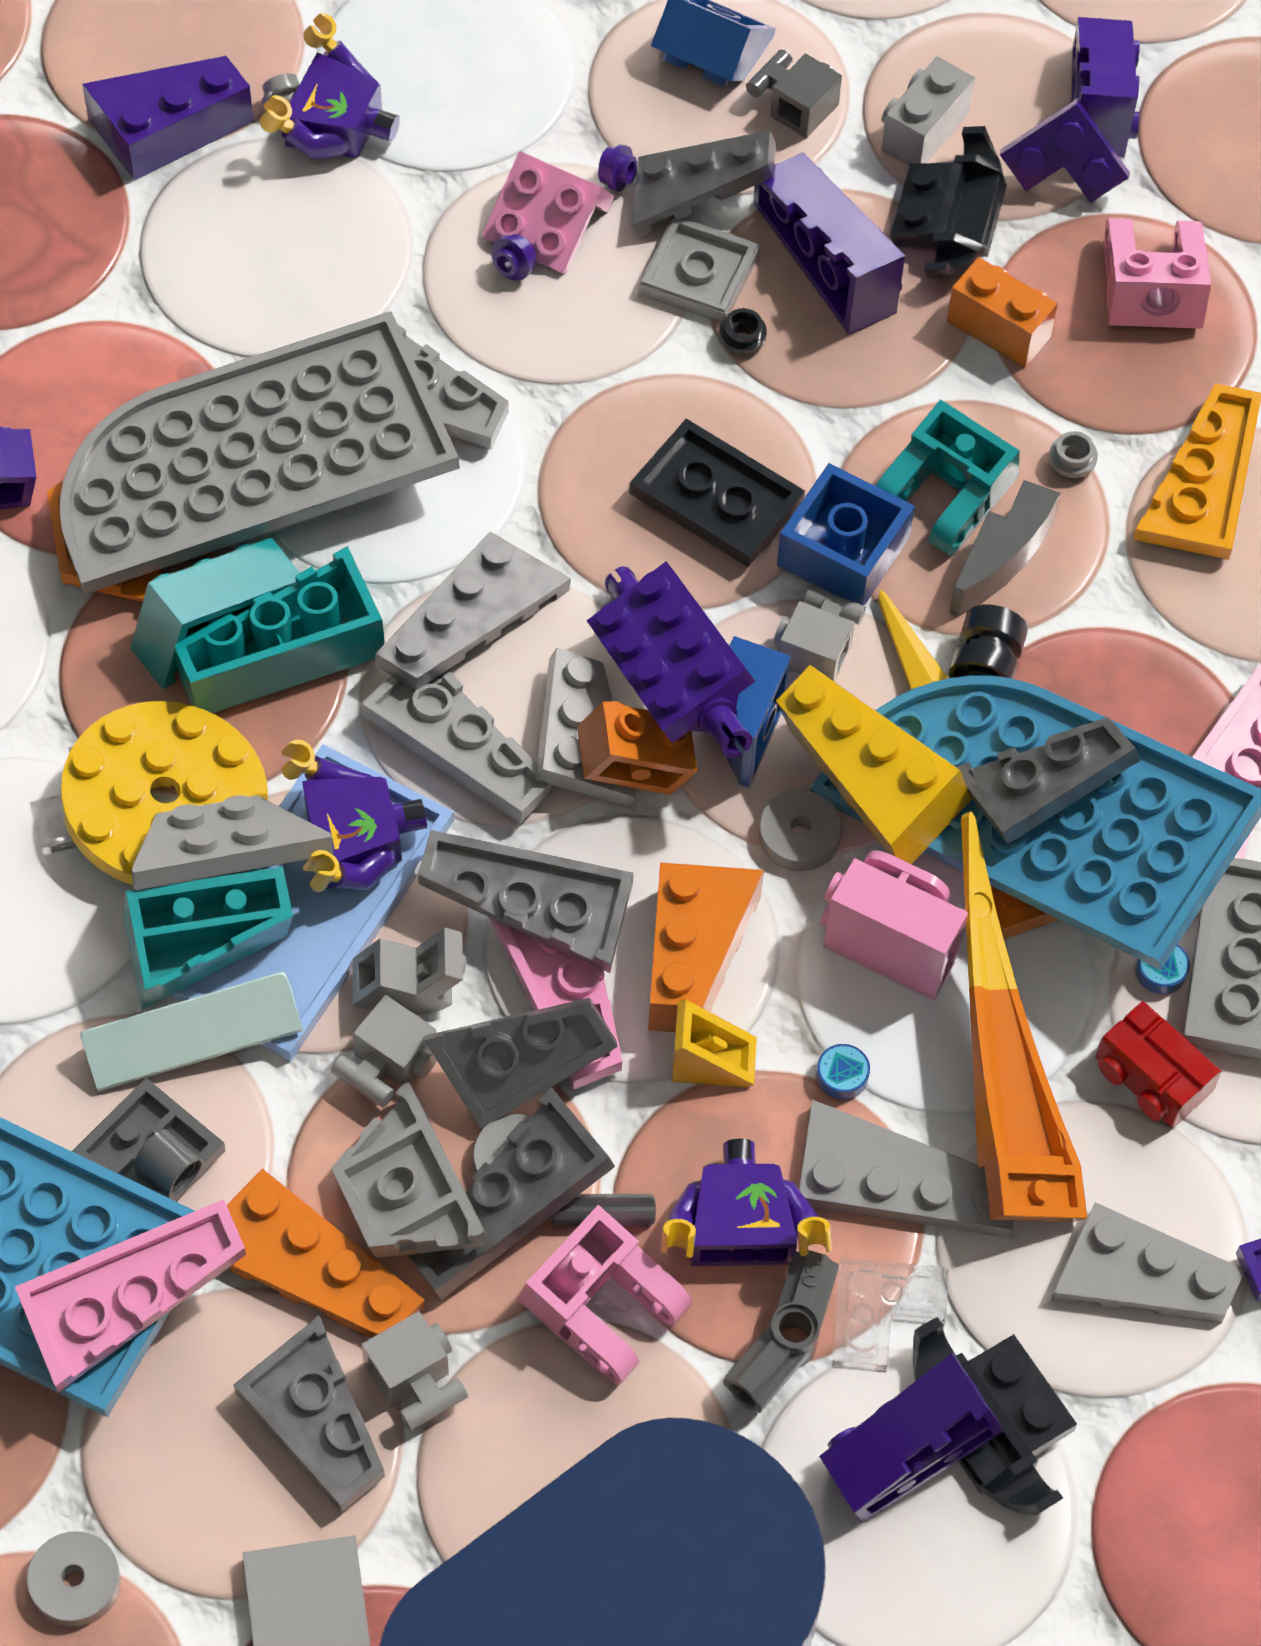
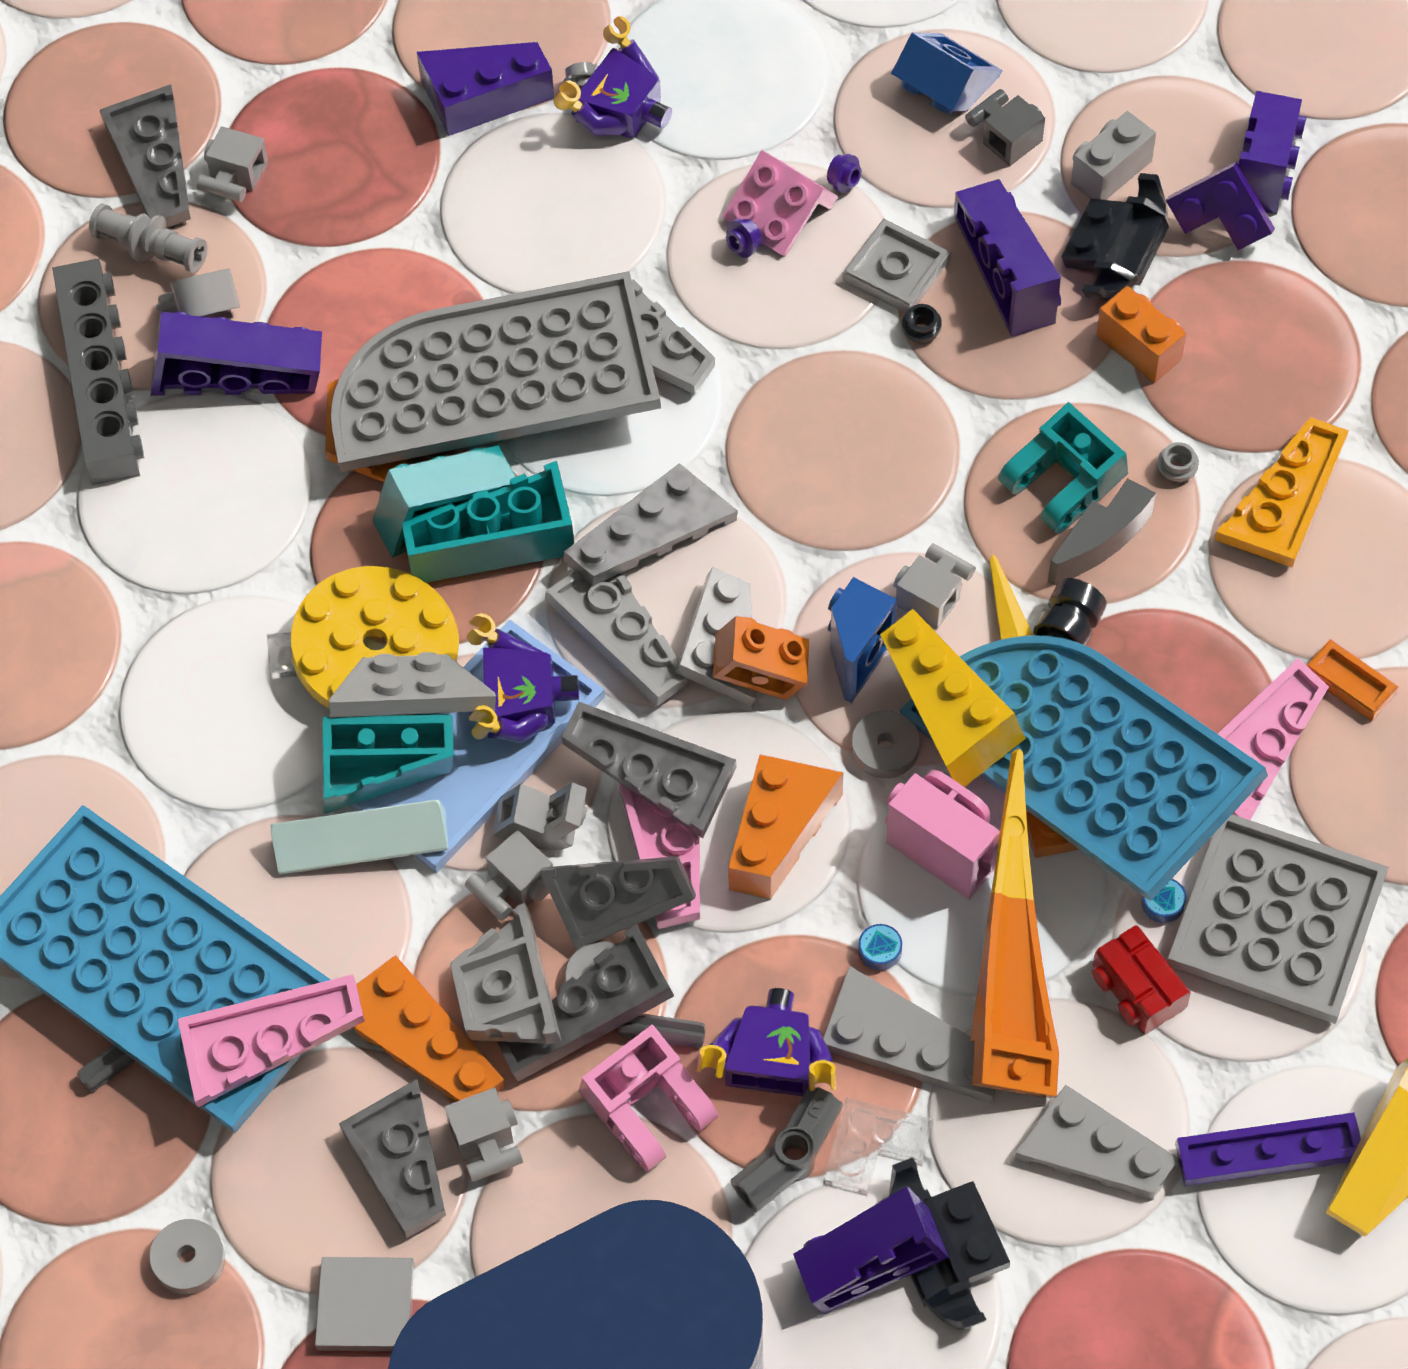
camera: 15 degrees right, 0 degrees up
(153, 1142) = (312, 922): dark grey plate -> none
(673, 656) = (802, 587): dark purple plate -> none
(689, 175) = (898, 187): flat silver wing -> none
(711, 1049) = (774, 912): yellow slope -> none
(716, 492) = (872, 455): black plate -> none
(845, 535) = (969, 505): blue brick -> none
(1040, 782) = (1083, 731): flat silver wing -> none
(1156, 286) = (1278, 328): bright pink brick -> none

